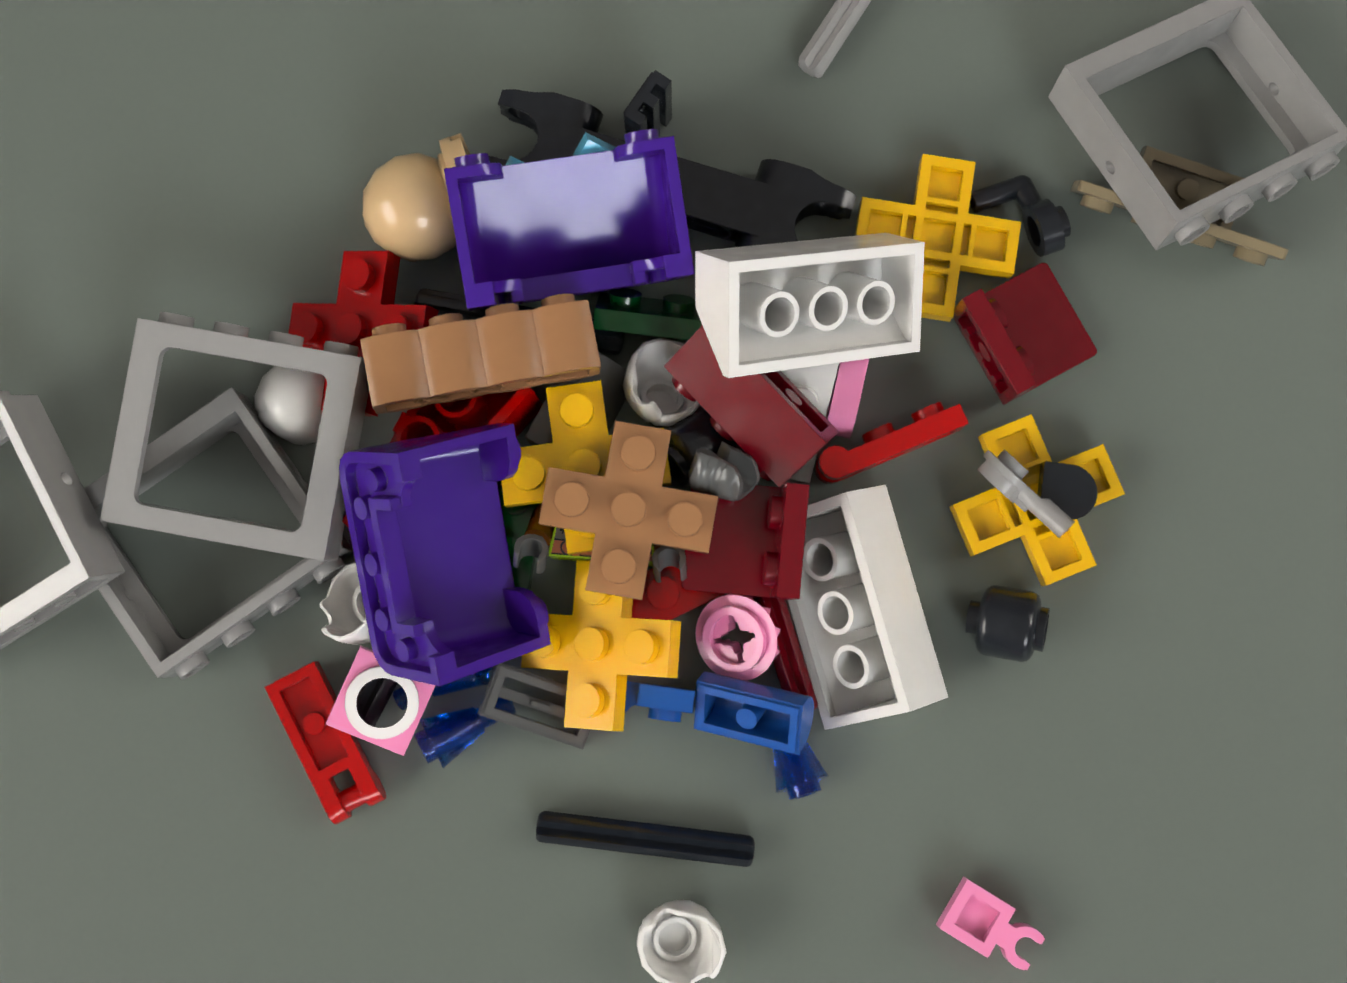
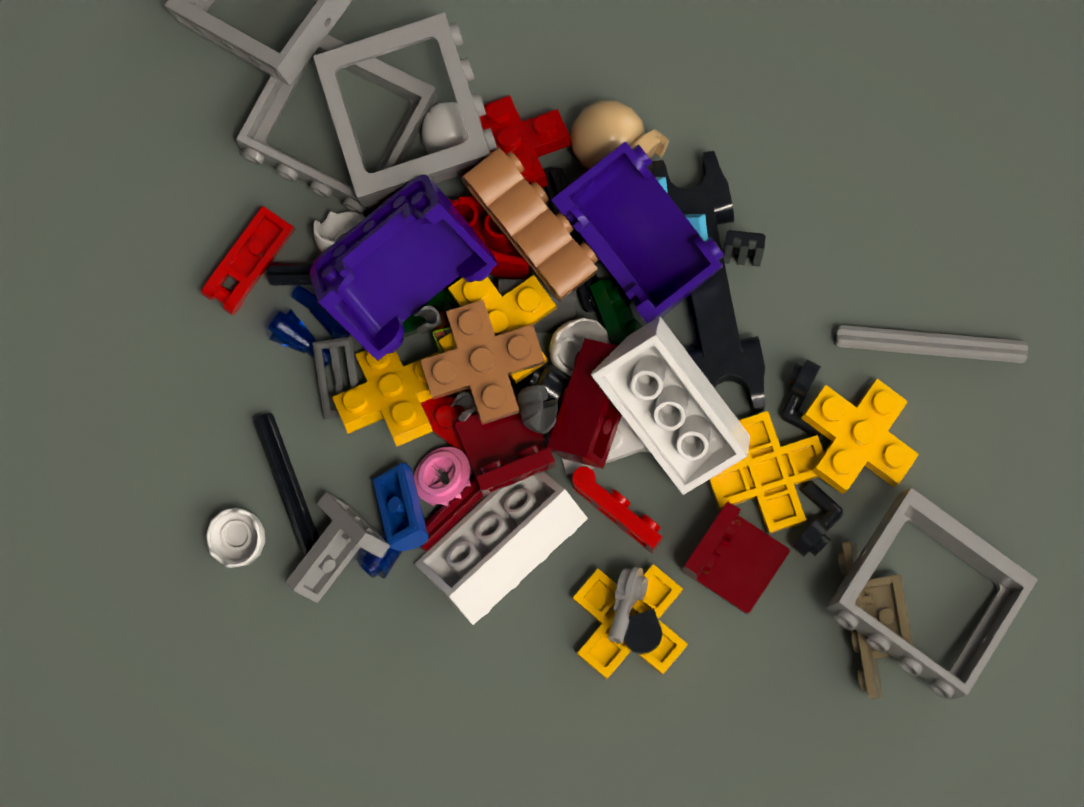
camera: 65 degrees right, 5 degrees down
(346, 717) = (270, 261): piece -> none
(664, 702) = (378, 452): blue plate -> none
(753, 798) = (334, 549): none -> light grey bracket
(846, 137) = (801, 380): none -> black plate
(846, 396) = (631, 467): bright pink beam -> none
(949, 105) = (859, 436): none -> yellow plate
(982, 922) = (344, 718): bright pink plate -> none
(1008, 623) = (540, 641): black head -> none

